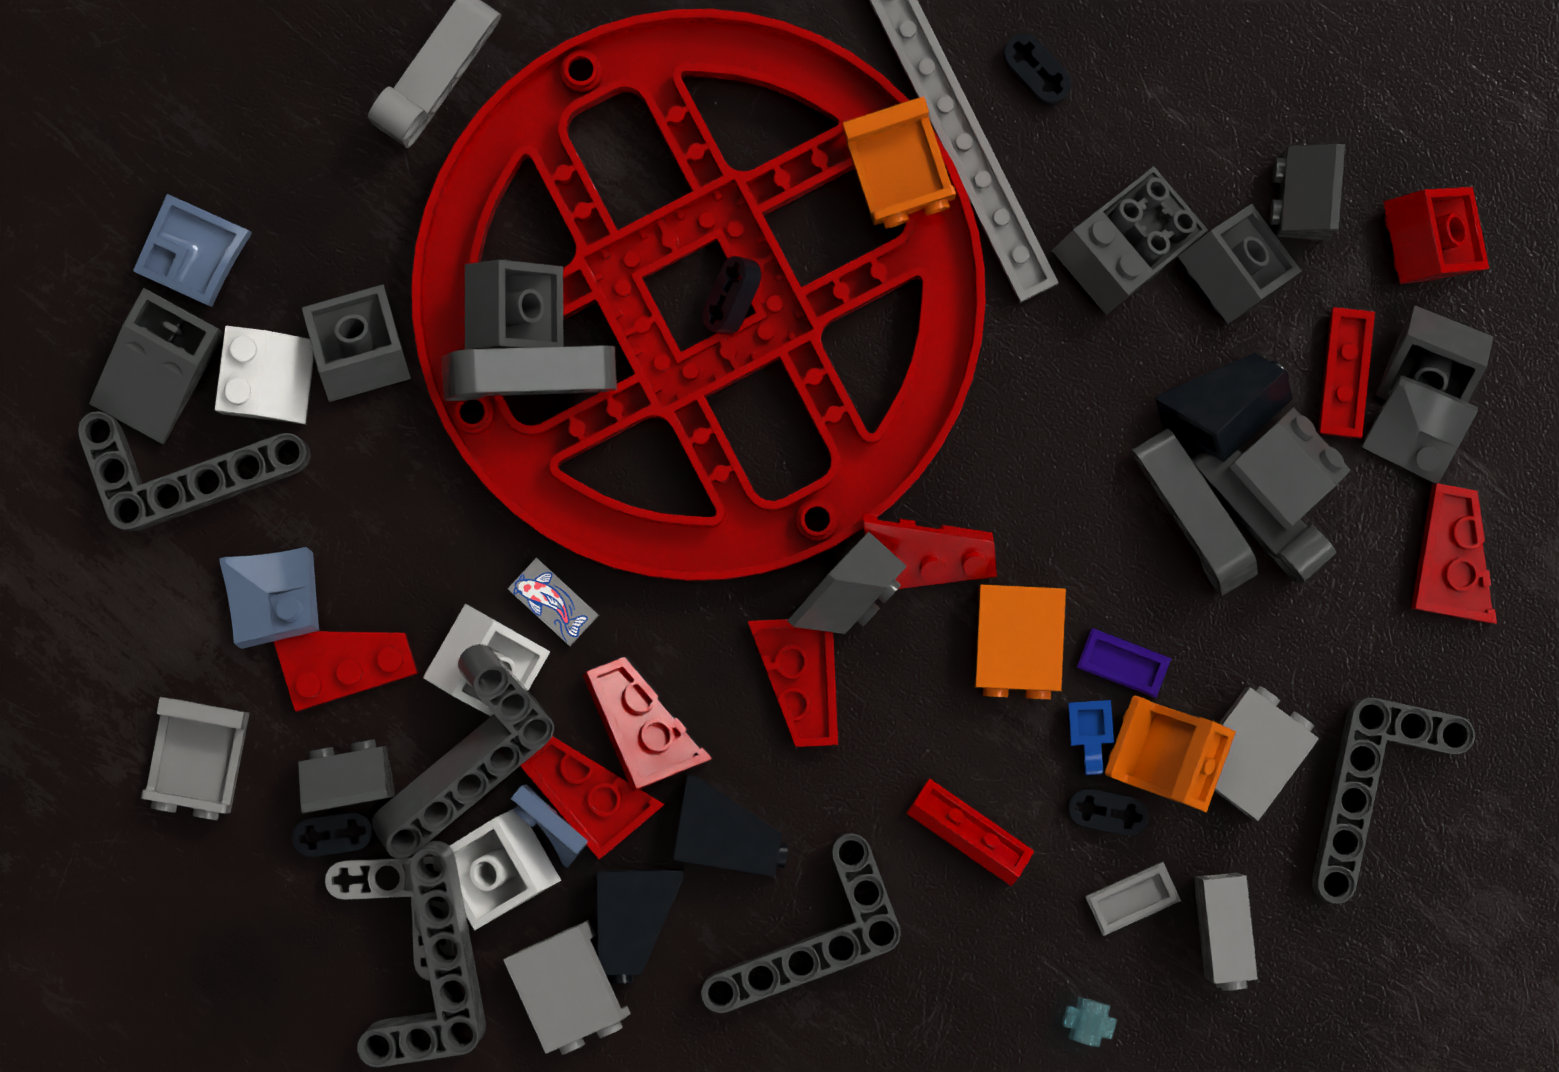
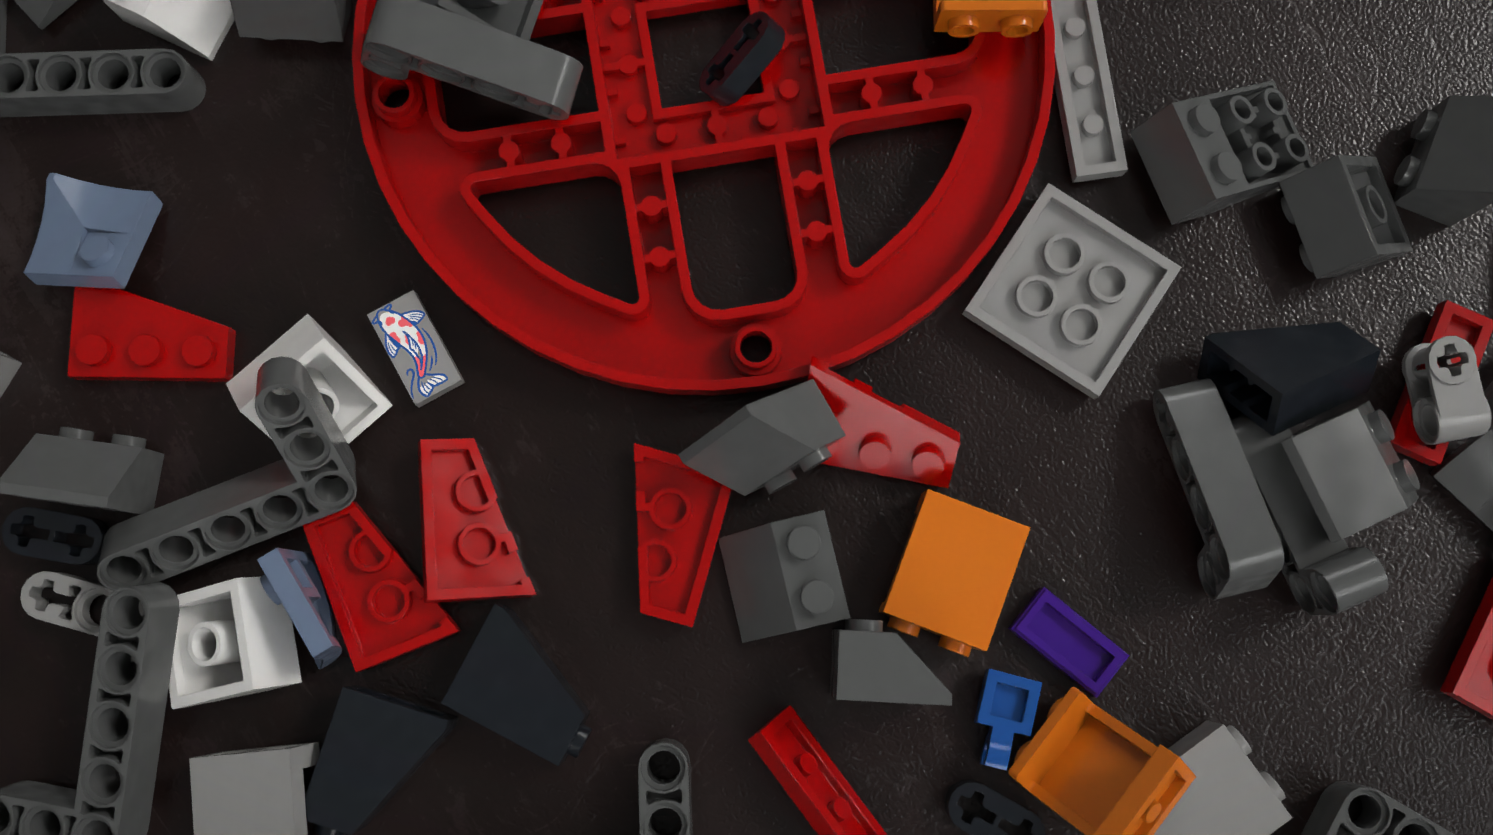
camera: 20 degrees right, 5 degrees down
(893, 685) = (784, 577): none -> dark grey slope
(985, 728) = (880, 668): none -> dark grey slope
(1044, 392) = (1072, 291): none -> light grey plate
(1347, 391) = (1448, 399): none -> light grey piece

